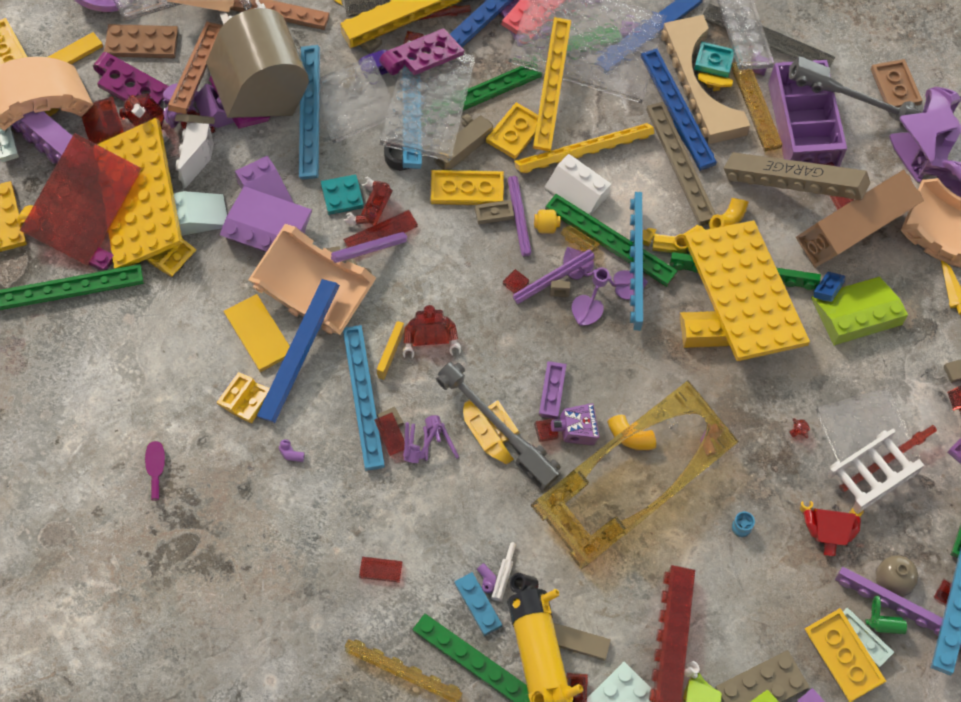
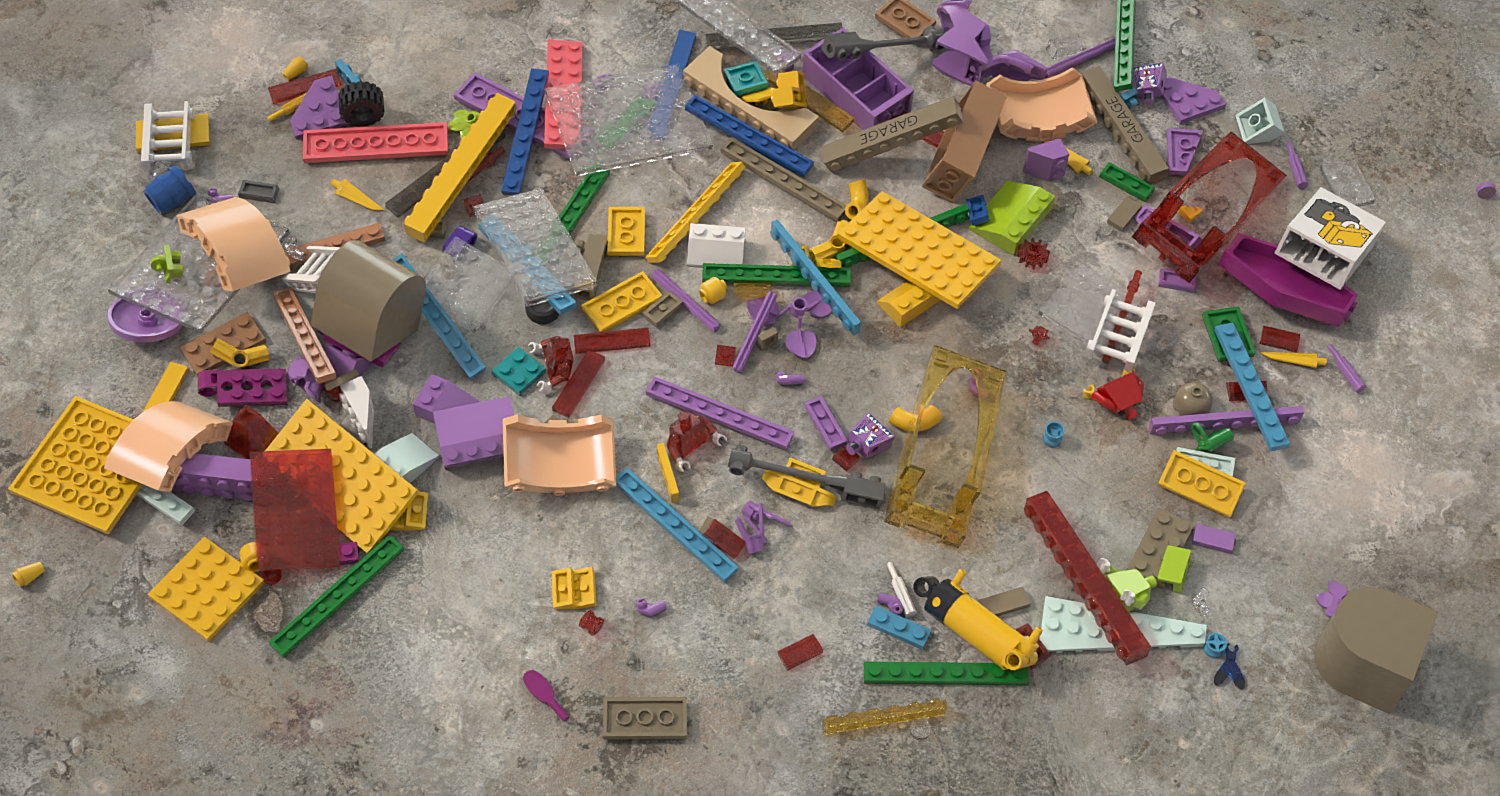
camera: 35 degrees left, 5 degrees down
(32, 246) = (273, 580): none -> clear red plate
(135, 49) = (251, 356): none -> yellow piece
(142, 109) = (282, 402): clear red torso -> none
(214, 540) = (644, 718): none -> dark tan plate
(234, 434) = (591, 622): none -> clear red wheel
(257, 332) = (541, 528): yellow tile -> none
(298, 351) = (593, 519): blue tile -> none
(368, 247) = (585, 398): medium lavender axle -> none
(398, 57) = (511, 207): magenta hinge -> none
(434, 214) = (612, 340): none -> clear red tile
(473, 328) = (720, 413): none -> medium lavender plate
(547, 330) = (784, 379): none -> medium lavender arm
(552, 84) = (632, 173): yellow plate -> none
(661, 255) = (829, 263): none -> yellow tile
(742, 91) = (790, 91): none -> yellow brick
(851, 354) = (1033, 253): none -> clear red gear
(926, 278) = (1047, 160): none -> medium lavender slope

